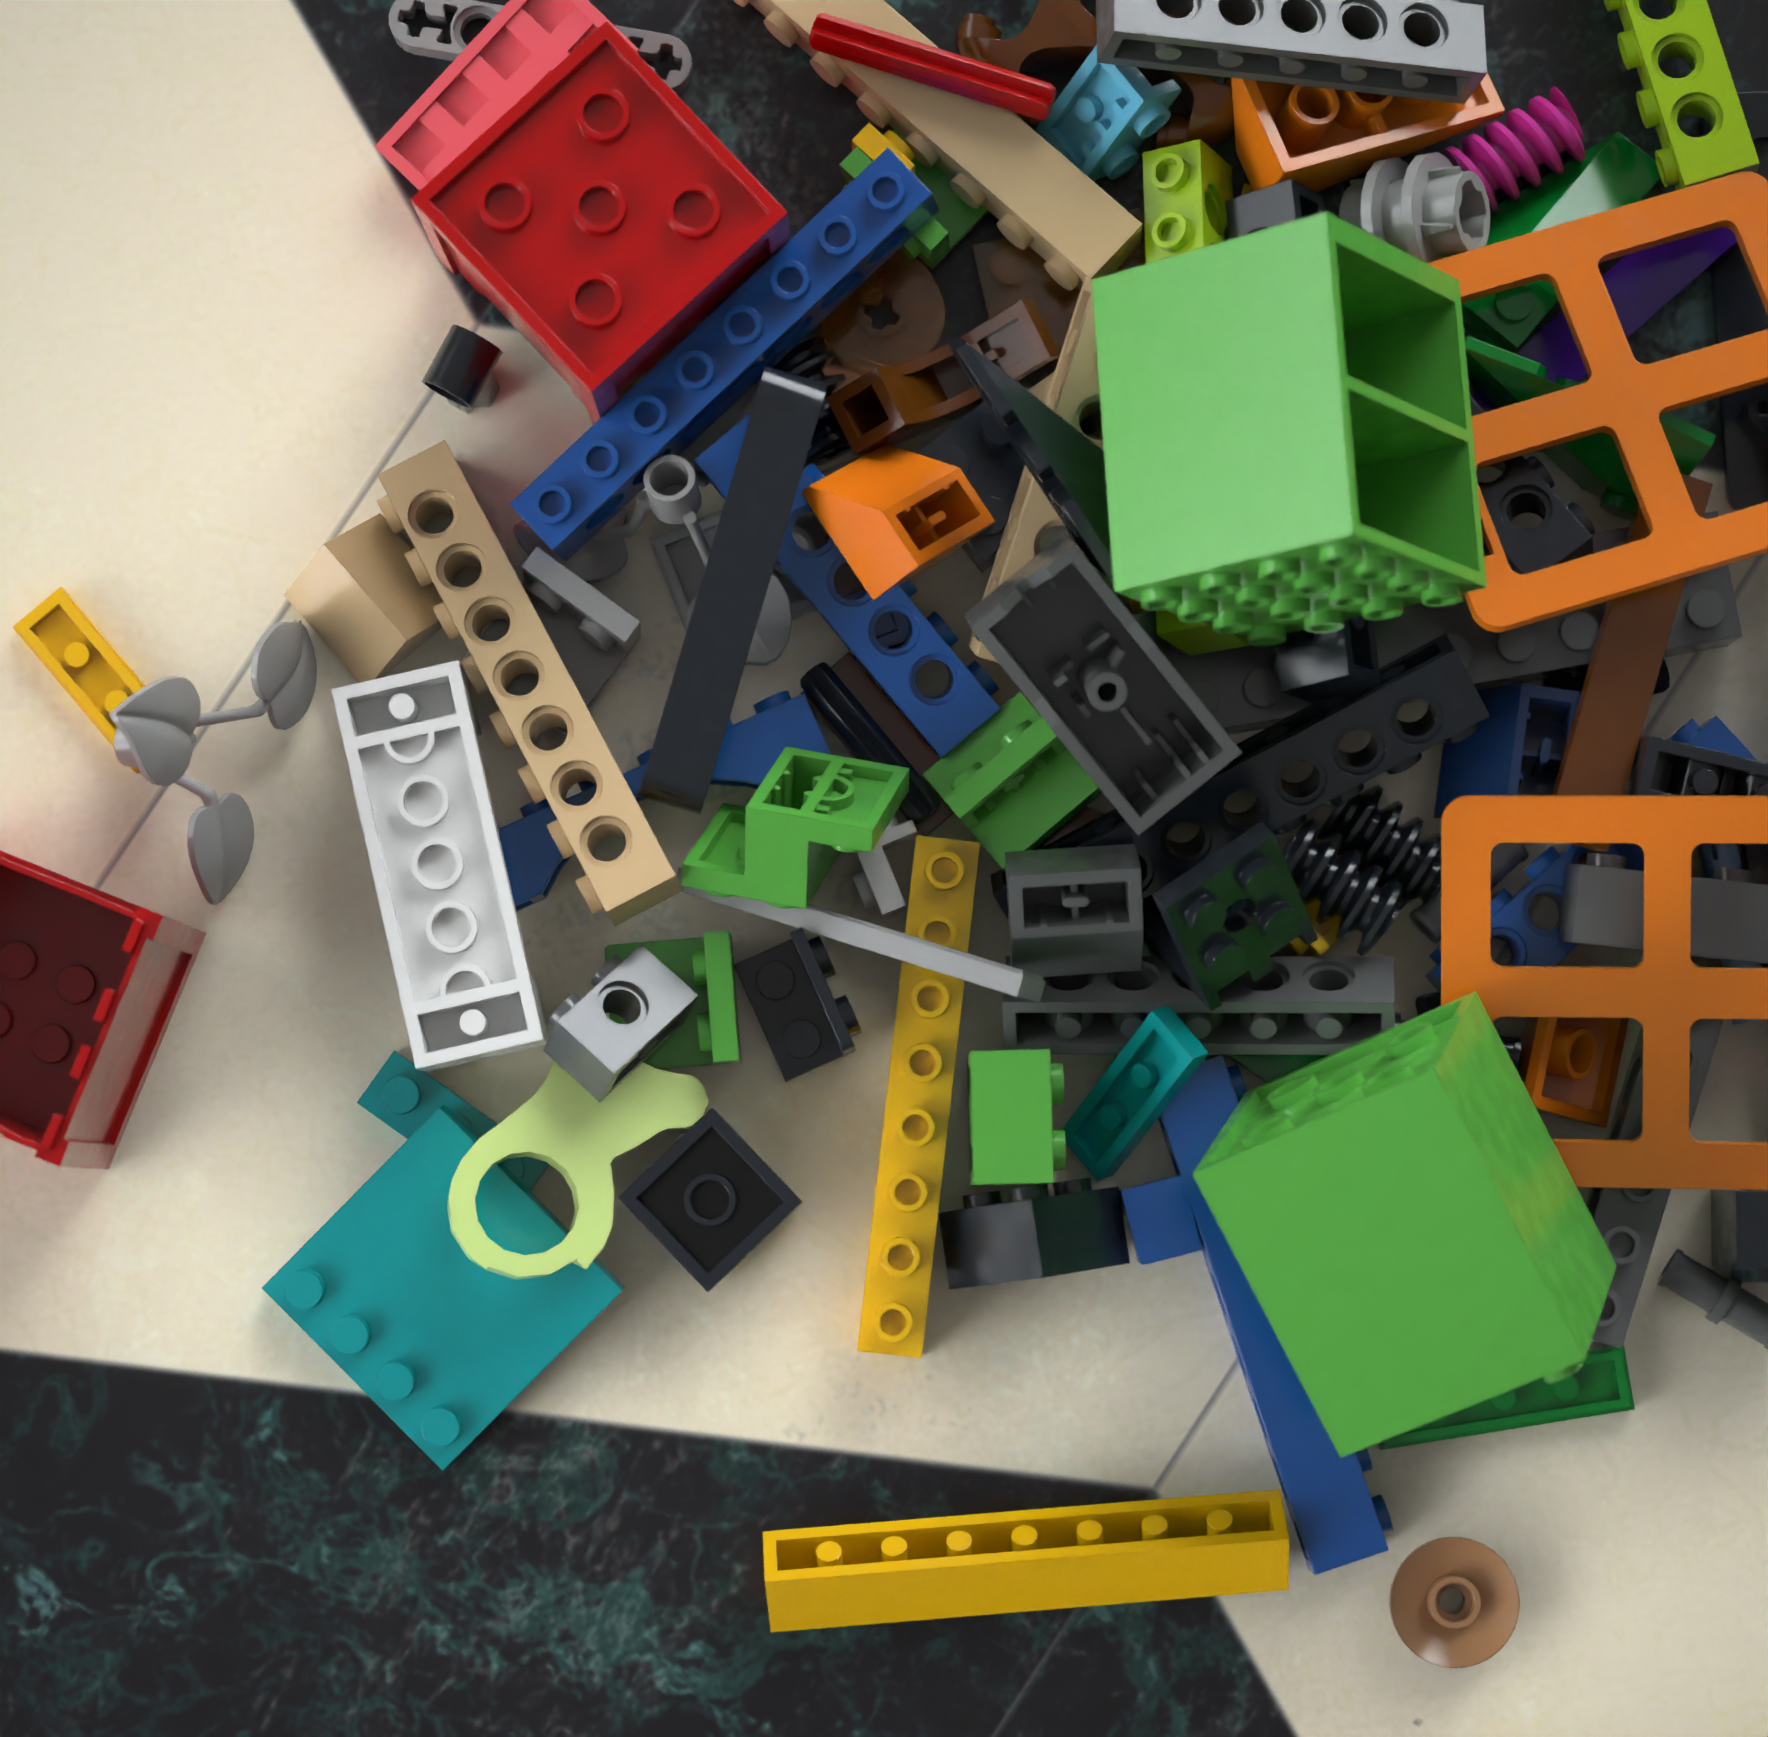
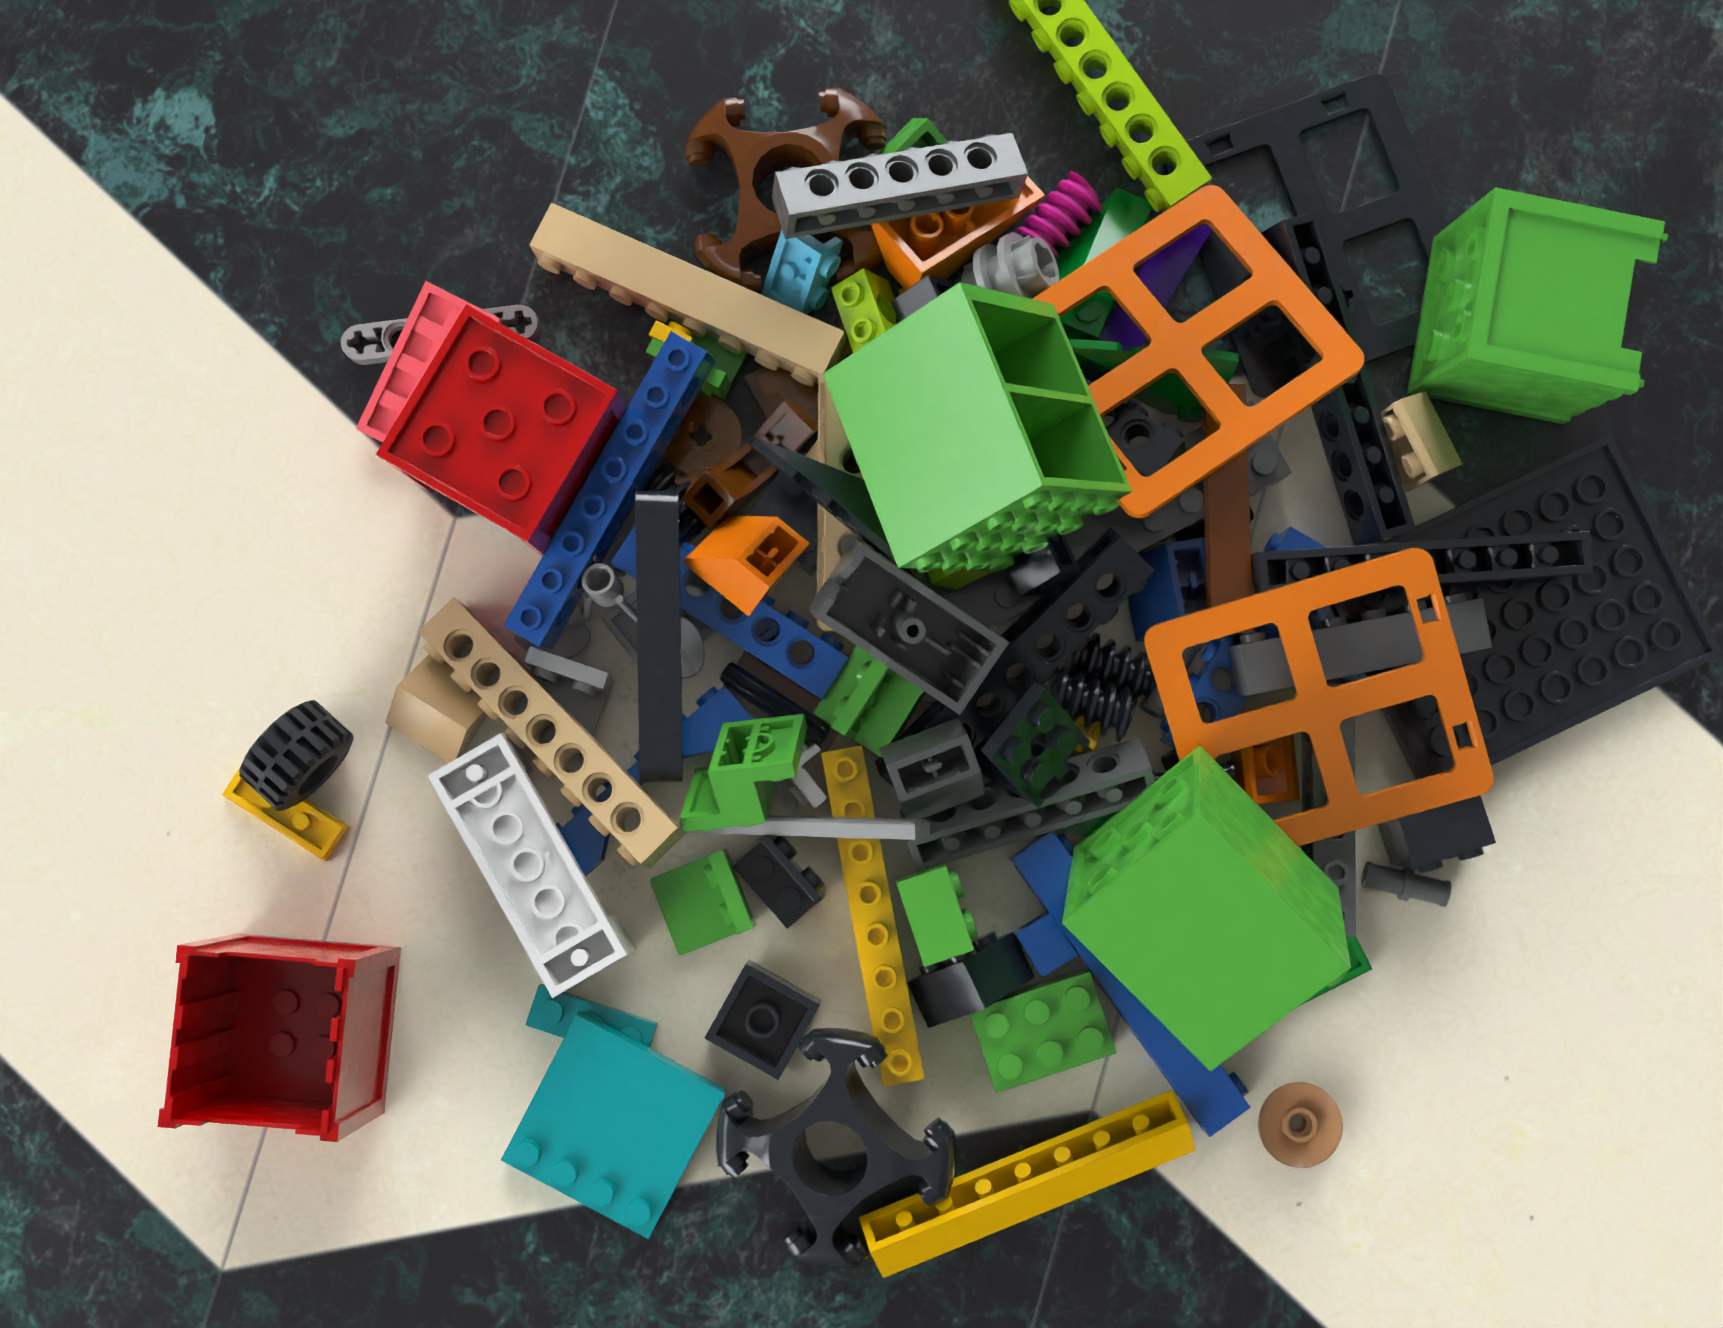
camera: 15 degrees left, 0 degrees up
(145, 601) = (296, 755): none -> black tyre
(159, 738) = (327, 840): light grey plant -> none
(464, 370) = (452, 550): black piece -> none
(579, 1141) = (665, 996): yellowish green animal -> none
(605, 1052) = (668, 950): brick -> none
(719, 1480) = (822, 1191): none -> black piece
(932, 66) = (684, 273): red axle -> none
(1115, 1343) = (1043, 1030): none -> bright green brick
(1133, 1092) = (1005, 871): teal plate -> none

